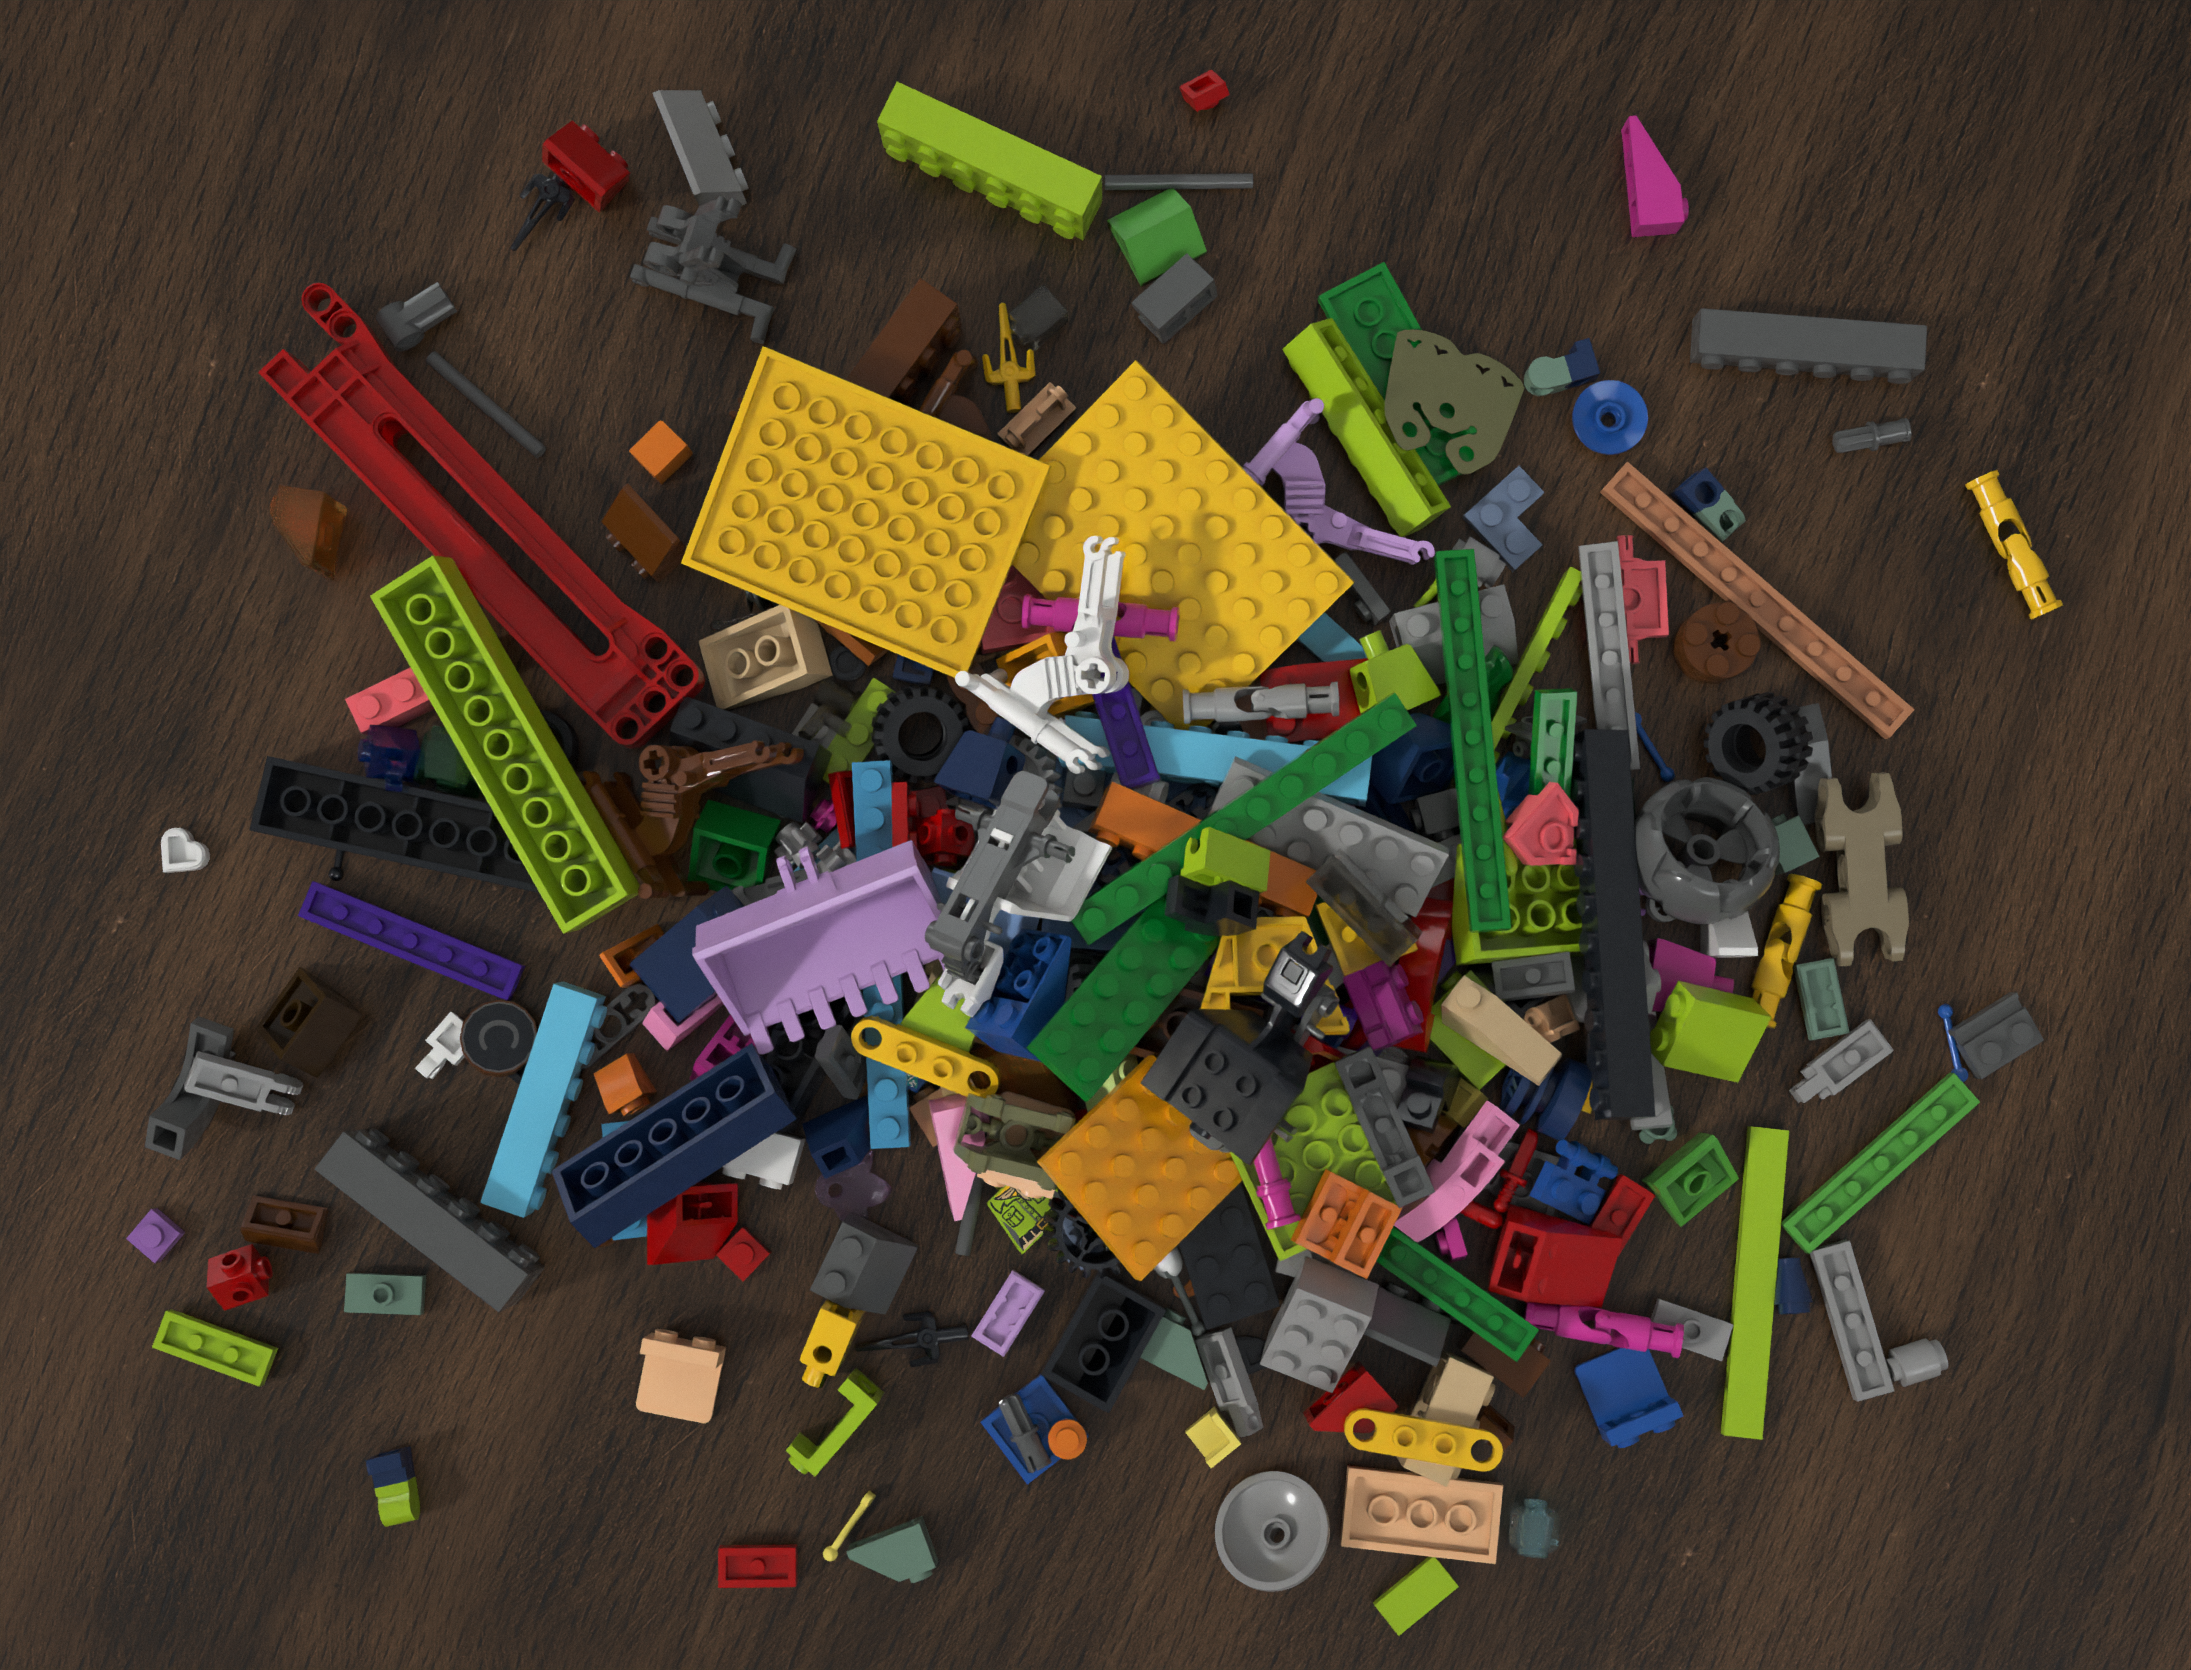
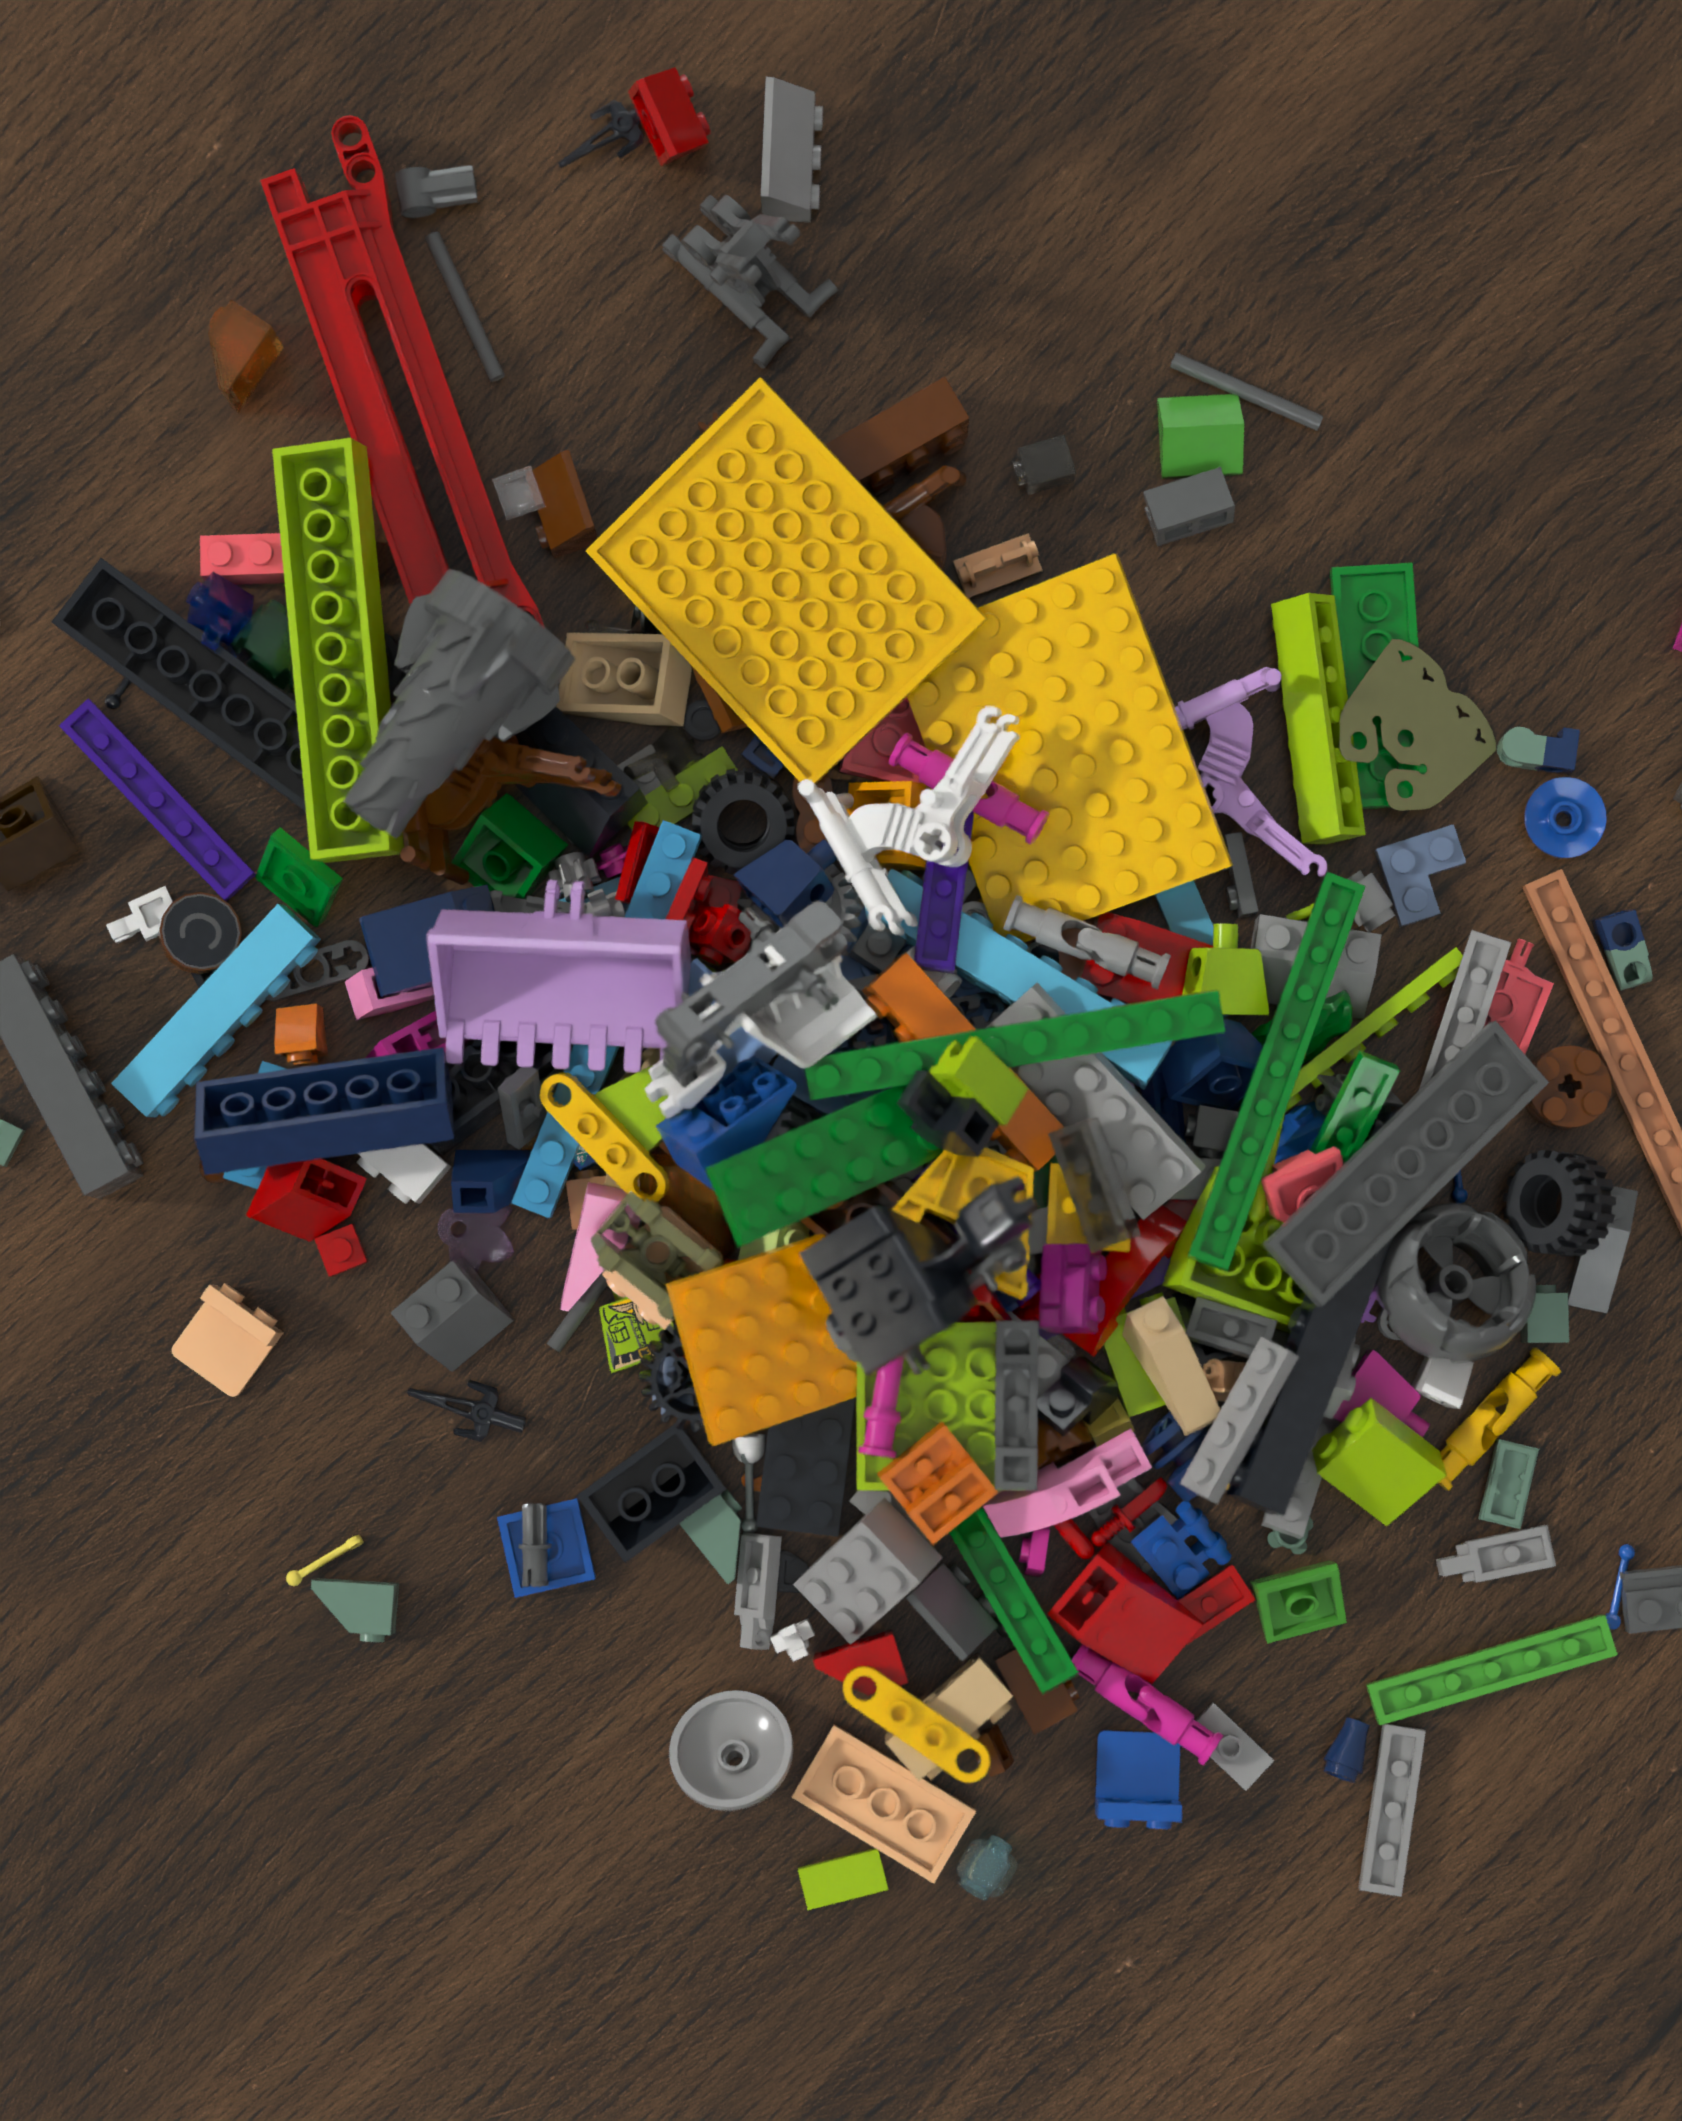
camera: 25 degrees right, 0 degrees up
(560, 955) = (298, 881): none -> green tile
(602, 540) = (518, 492): none -> clear plate
(620, 956) = (354, 906): orange slope -> none
(629, 711) = (471, 675): none -> dark grey cone
(661, 452) = (615, 431): orange panel -> none
(757, 1566) = (219, 1557): red plate -> none
(829, 1342) = (398, 1361): yellow torso -> none
(865, 1396) = (397, 1442): lime panel -> none
(990, 162) = (1067, 291): lime brick -> none
(1008, 1313) = (571, 1424): lavender plate -> none
(1009, 372) = (993, 506): yellow piece -> none
(1067, 1439) = (573, 1570): orange plate -> none
(1204, 91) = (1312, 313): red plate -> none
(1213, 1436) = (716, 1635): light yellow panel -> none
(1281, 1410) = (794, 1639): none -> white plate
(1579, 1052) = (1239, 1420): none -> light grey plate
(1617, 769) = (1405, 1163): none -> dark grey plate
(1754, 1282) = (1314, 1730): lime tile -> none
(1861, 868) = (1596, 1401): dark tan piece -> none
(1916, 1361) = (1436, 1878): light grey brick -> none

